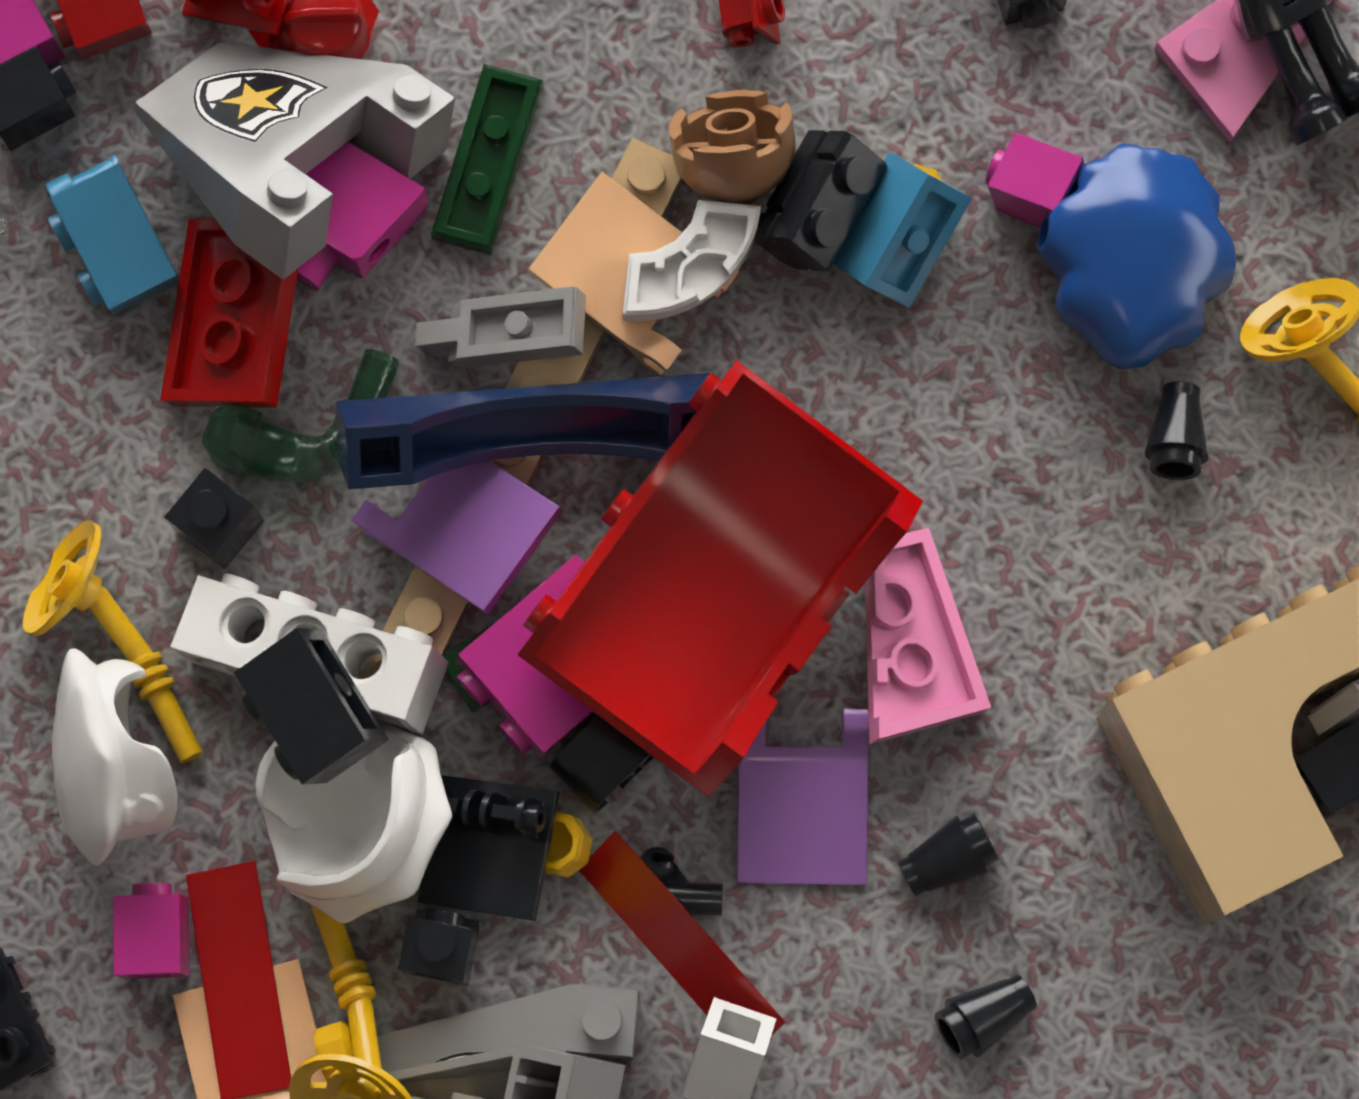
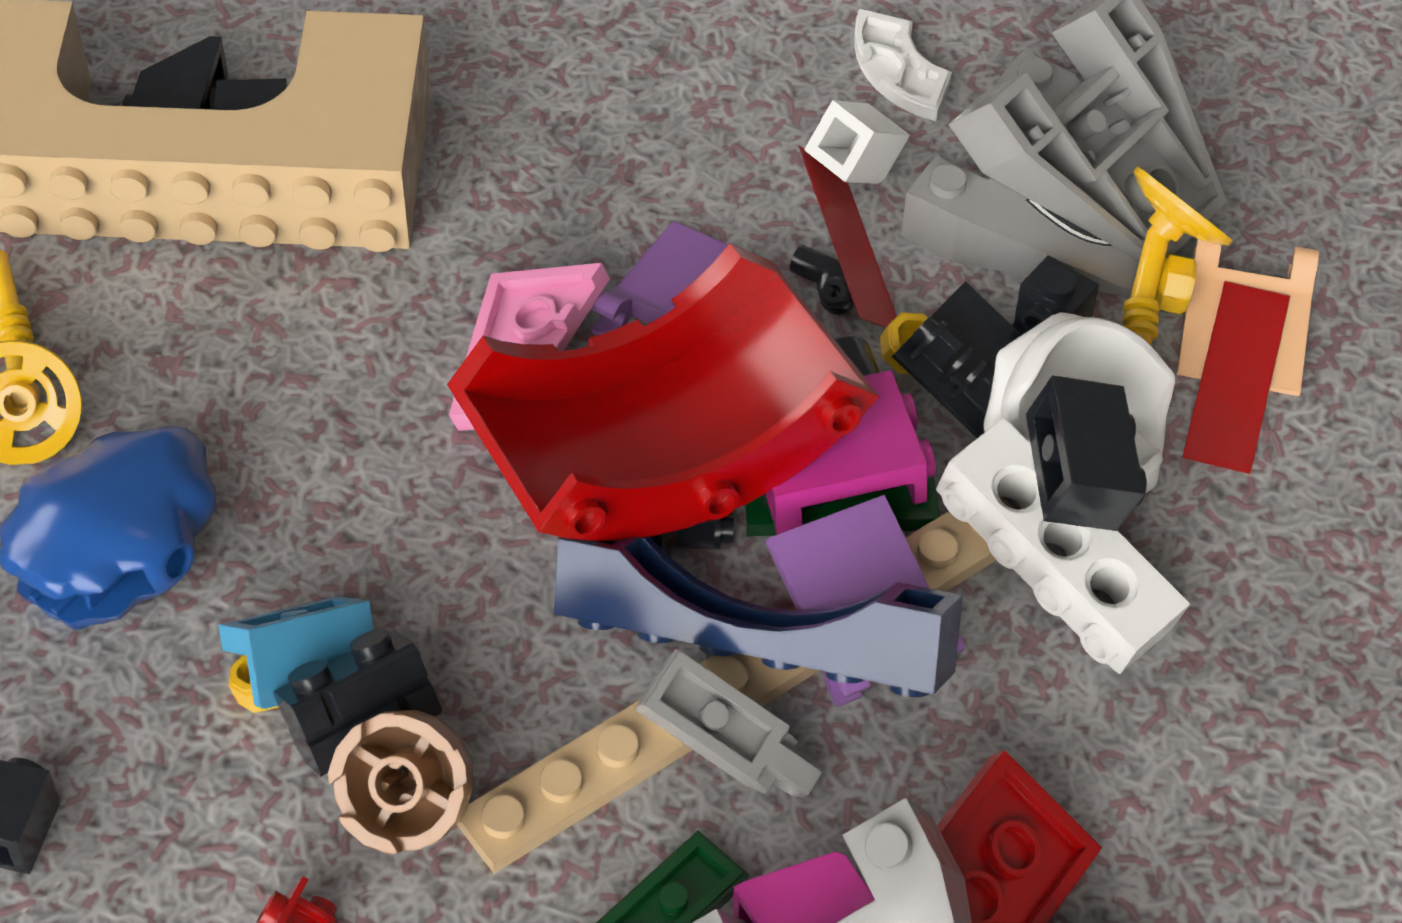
camera: 155 degrees left, 25 degrees down
(77, 586) = (1253, 702): yellow dish -> none
(102, 777) = (1296, 555): white piece -> none
(151, 933) = (1302, 424): dark pink brick -> none
(214, 518) = (1097, 707): black brick -> none
(246, 444) = (970, 726): clear green piece -> none
(593, 255) = (577, 736): light nougat flag -> none
(693, 265) = (517, 692): white tile -> none
(949, 856) = (595, 201): black cone -> none
(984, 1015) = (639, 100): black cone -> none
(1031, 178) = (147, 622): dark pink brick -> none
(1178, 436) = (187, 387): black cone -> none

